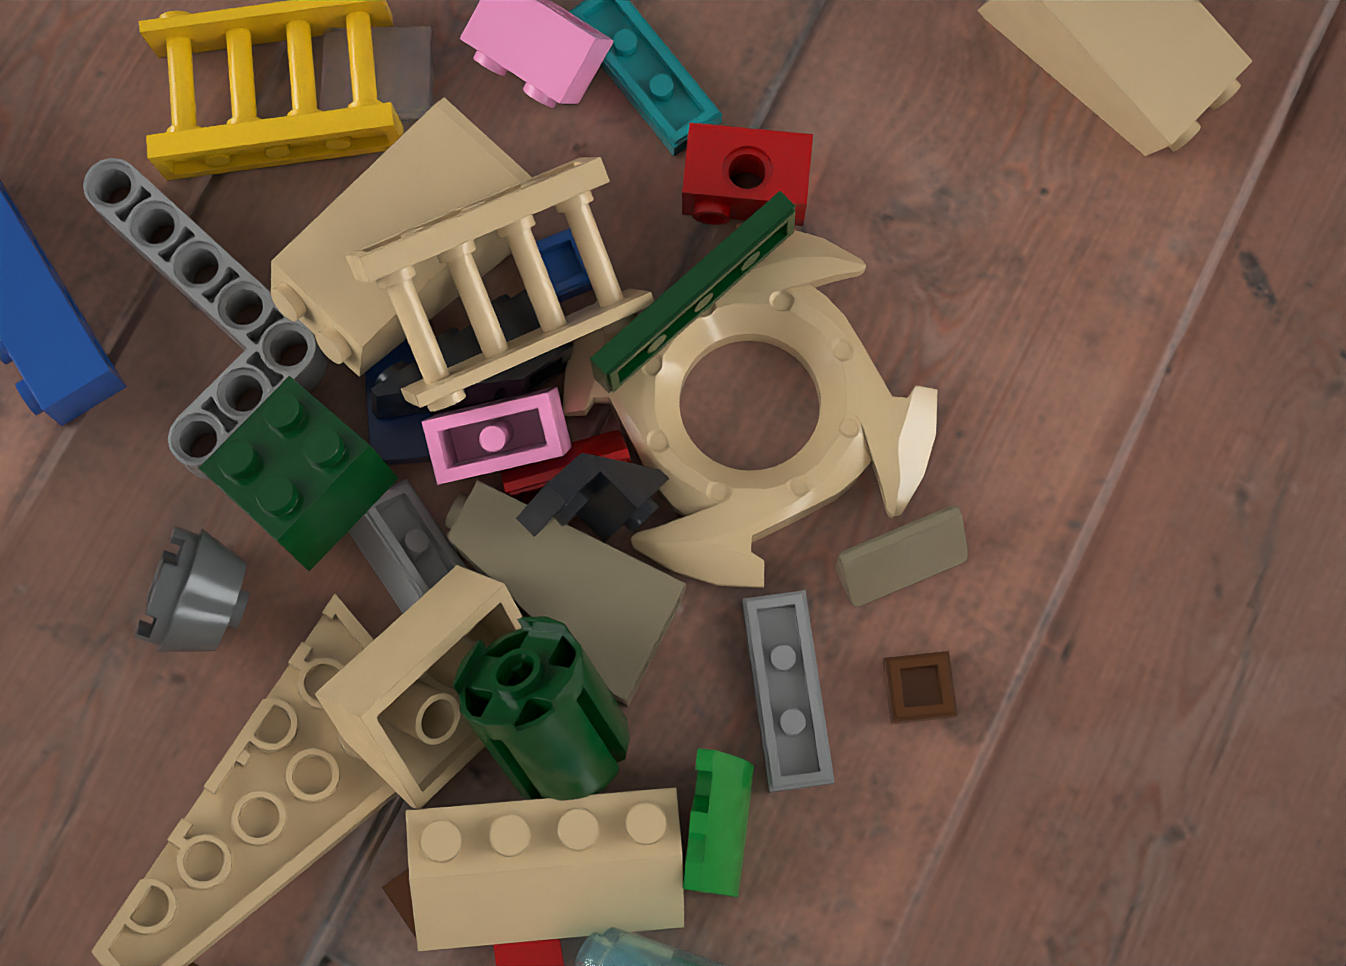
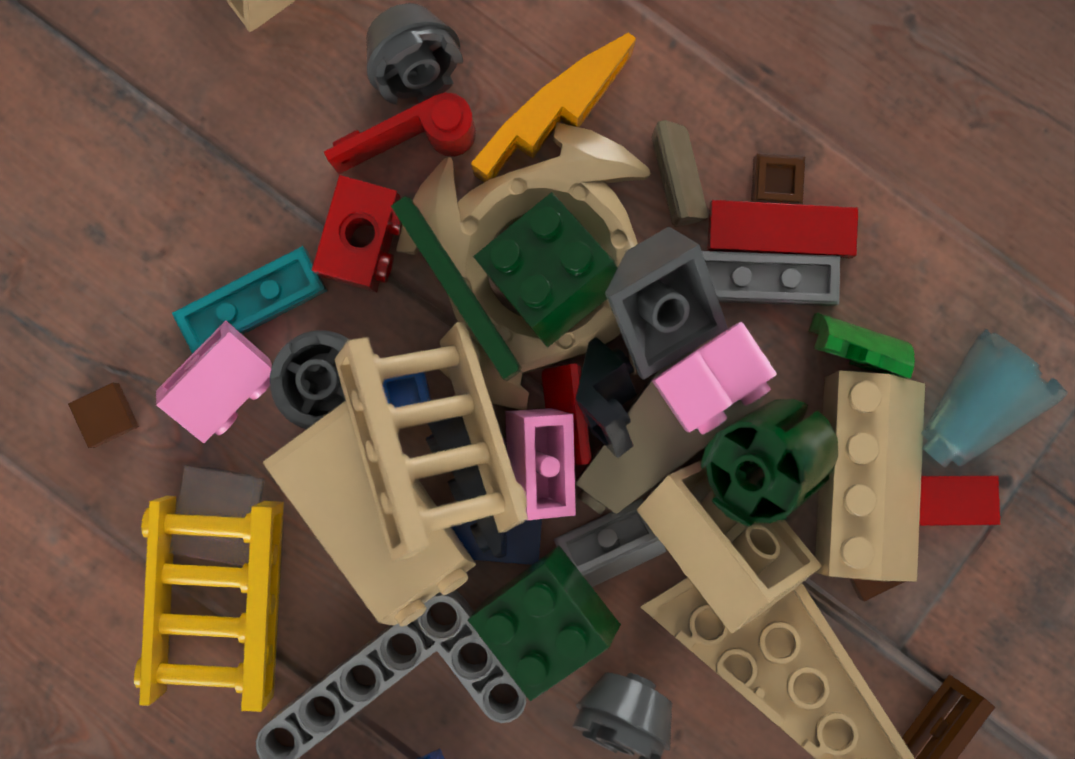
camera: 80 degrees left, 10 degrees up
(558, 132) = (306, 377): none -> dark grey cone
(635, 620) = (715, 378): none -> bright pink brick
(720, 539) = (664, 300): none -> dark grey slope
(739, 400) = (548, 269): none -> dark green brick
(856, 703) = (782, 228): none -> red tile
(908, 241) = (443, 118): none -> red door
(974, 398) = (563, 99): none -> light orange slope
(981, 193) = (411, 53): none -> dark grey cone

